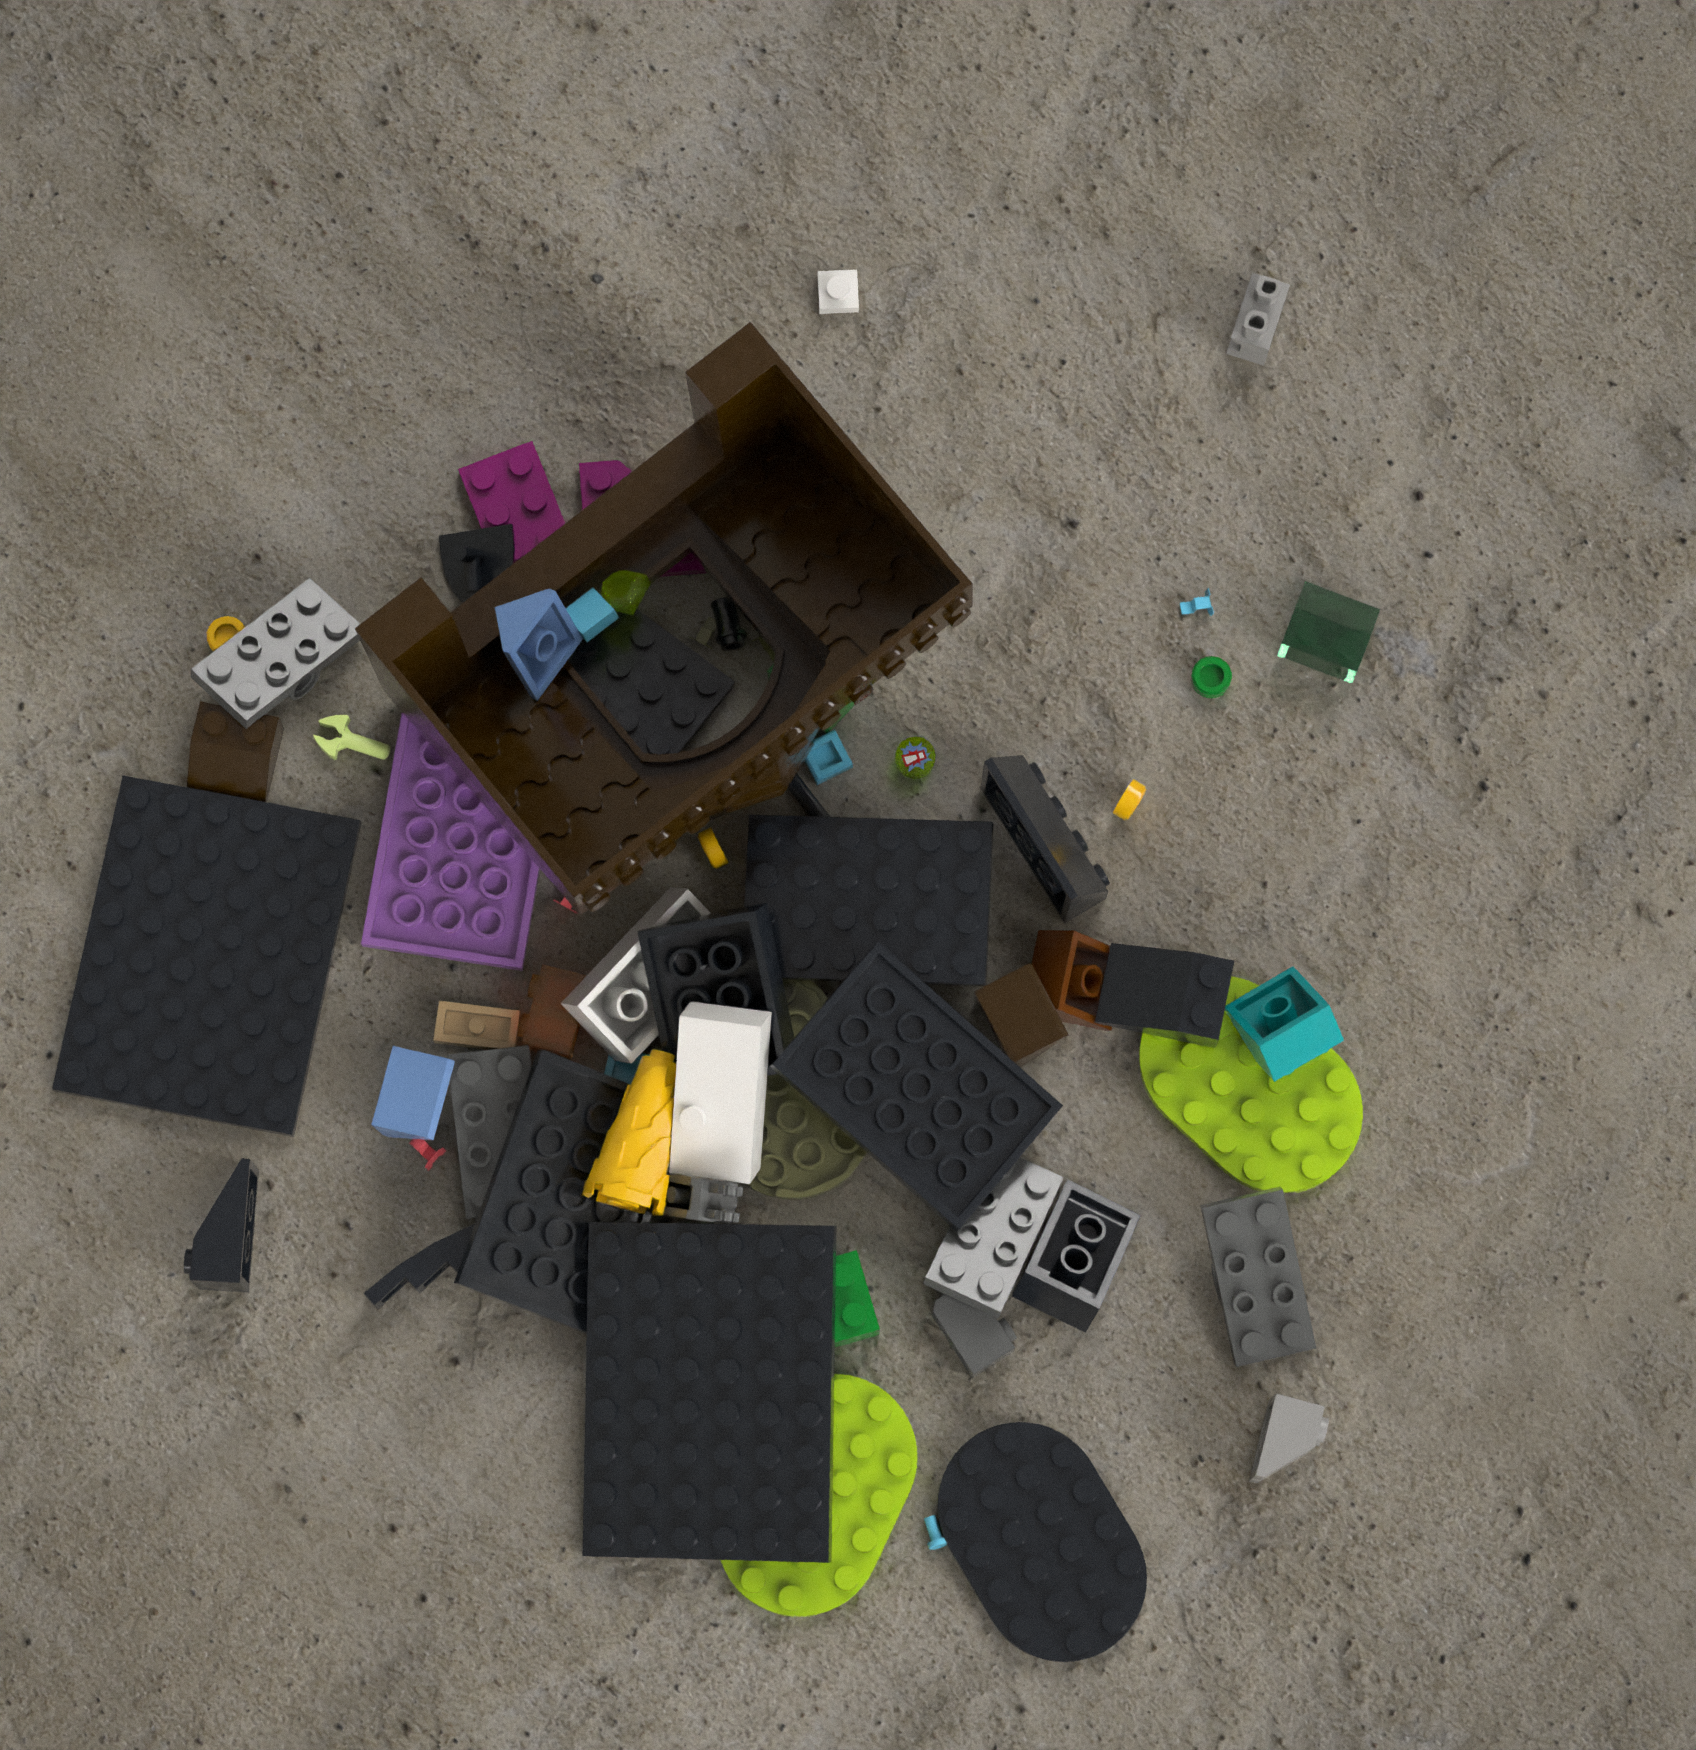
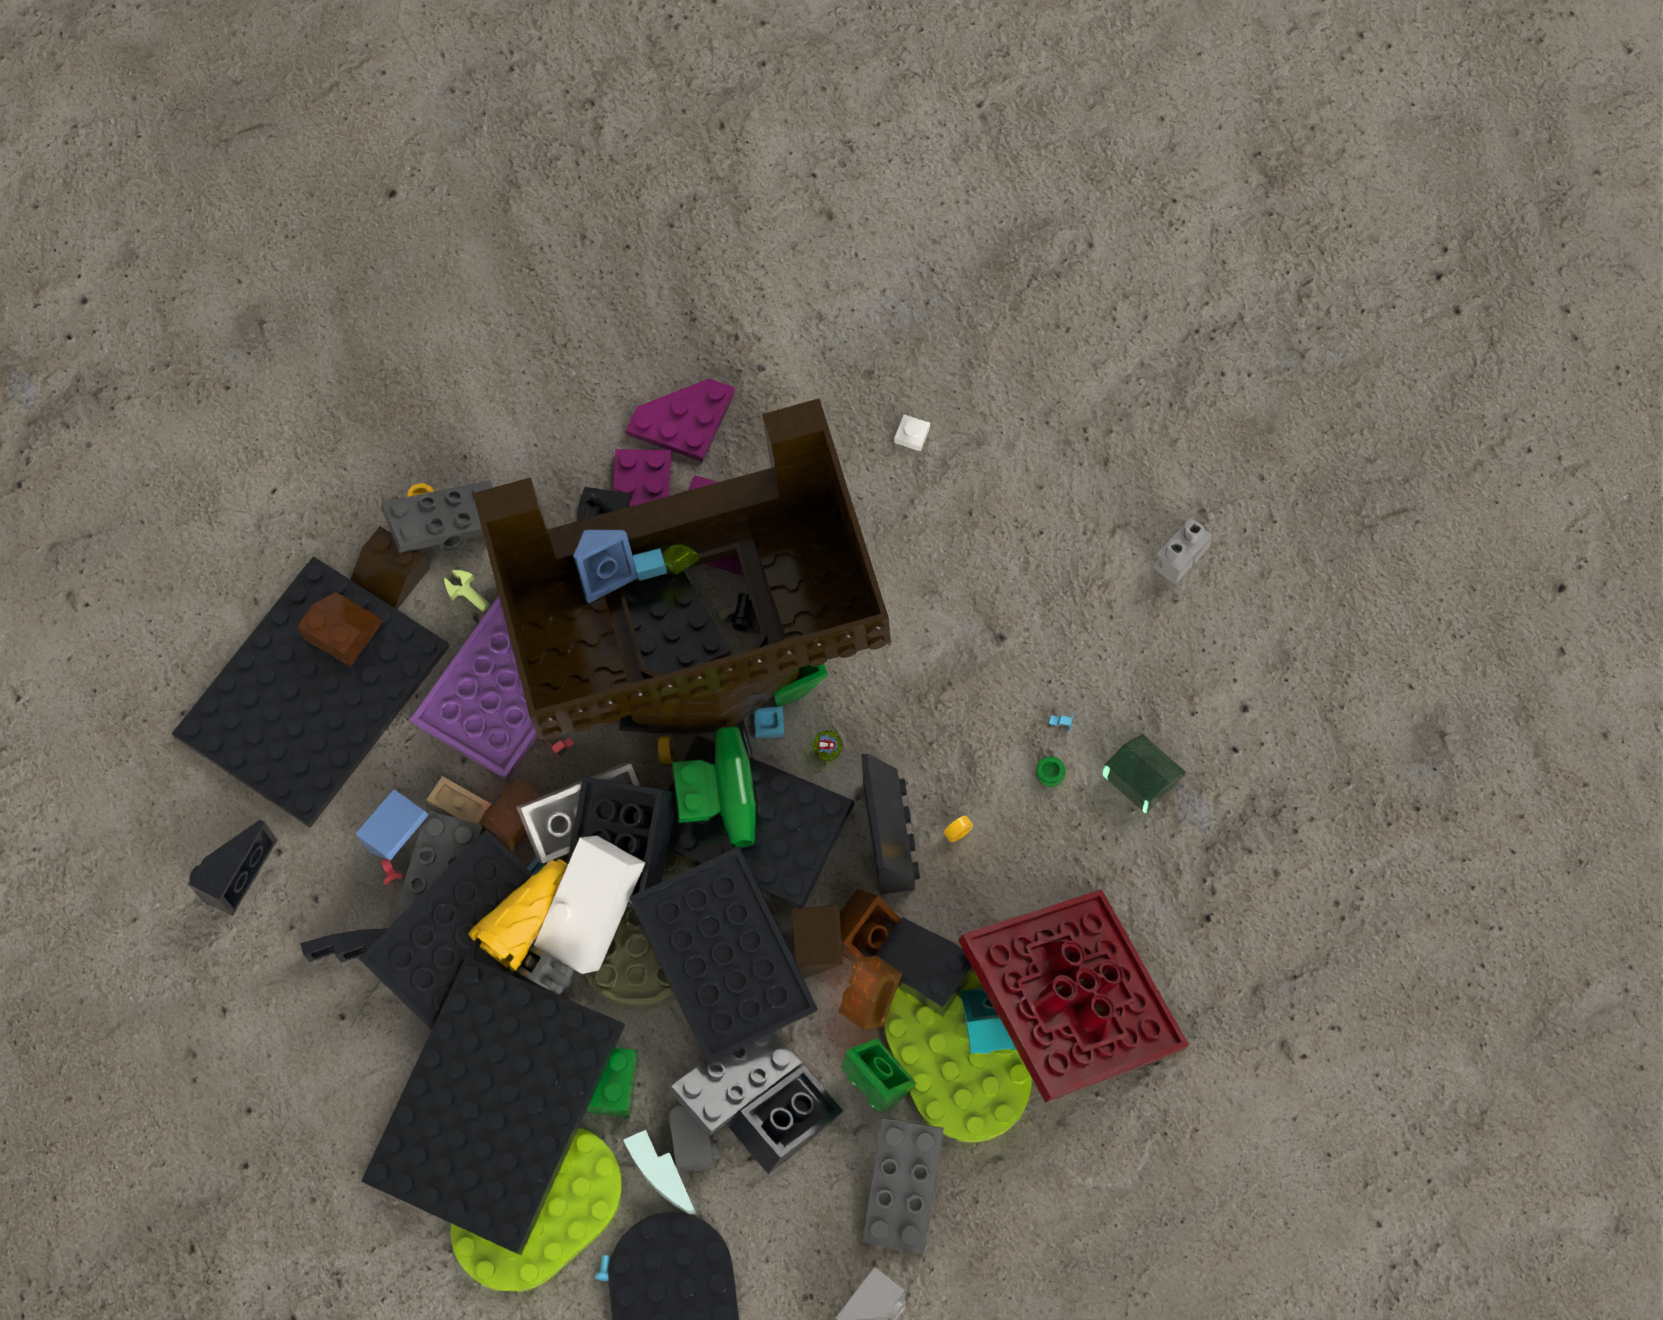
camera: 30 degrees right, 10 degrees down
(212, 859) = (339, 627): none -> reddish brown slope
(528, 390) = (684, 419): none -> magenta plate
(819, 875) = (723, 787): none -> green plate
(951, 1388) = (659, 1171): none -> light aqua slope
(1115, 1056) = (870, 992): none -> clear orange piece
(1169, 1155) = (877, 1075): none -> green slope
(1369, 955) = (1073, 994): none -> dark red plate

